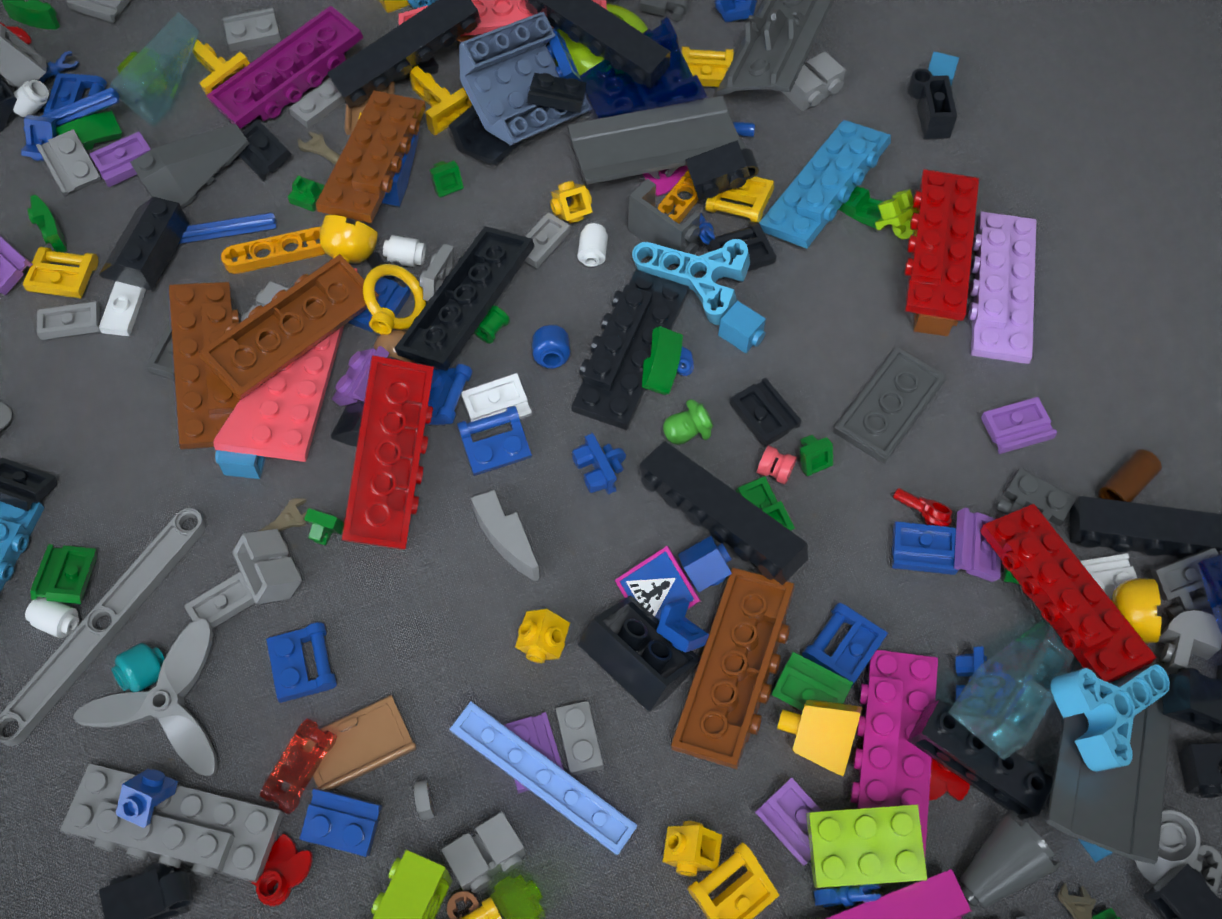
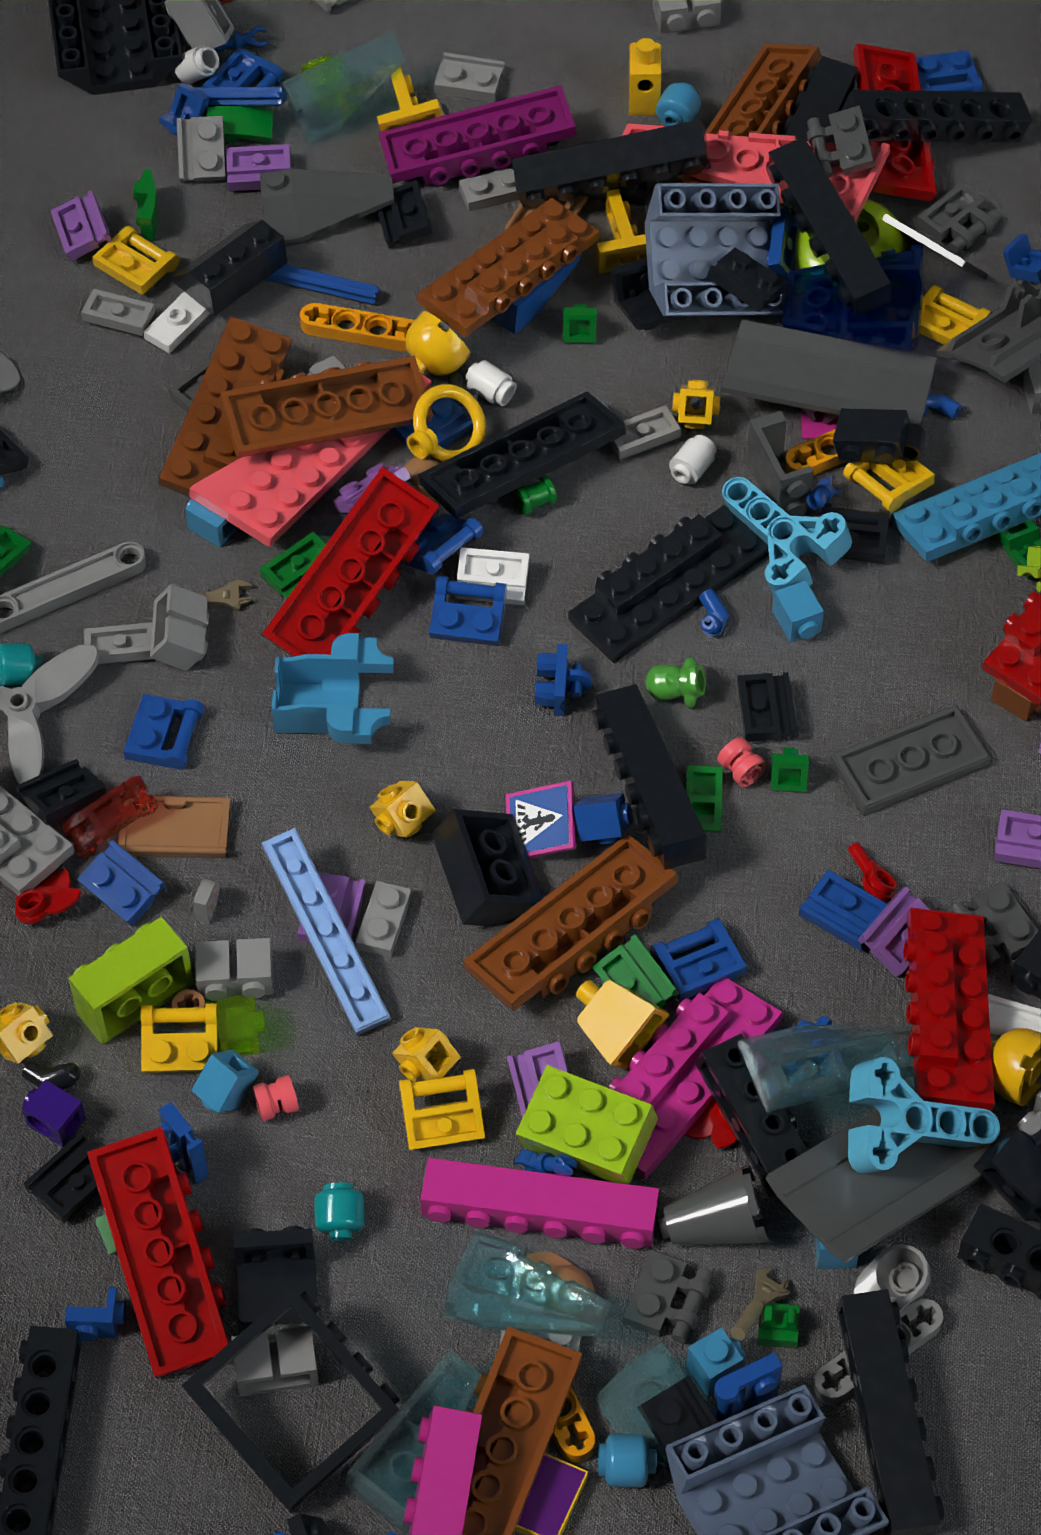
camera: 30 degrees right, 5 degrees down
(242, 765) = (60, 791): none -> black plate
(305, 193) = (421, 276): green tile -> none
(318, 146) = (465, 234): dark tan piece -> none
(322, 526) = (251, 616): green tile -> none
(334, 467) = (290, 566): none -> green plate
(417, 566) = (323, 691): none -> dark azure piece
(439, 268) = (509, 415): light grey plate -> none
(505, 534) = (425, 701): light grey slope -> none
(551, 346) = (582, 543): blue head -> none
(662, 366) = (688, 608): green slope -> none
(676, 18) = (935, 247): none -> piece
(678, 629) = (535, 859): blue bracket -> none

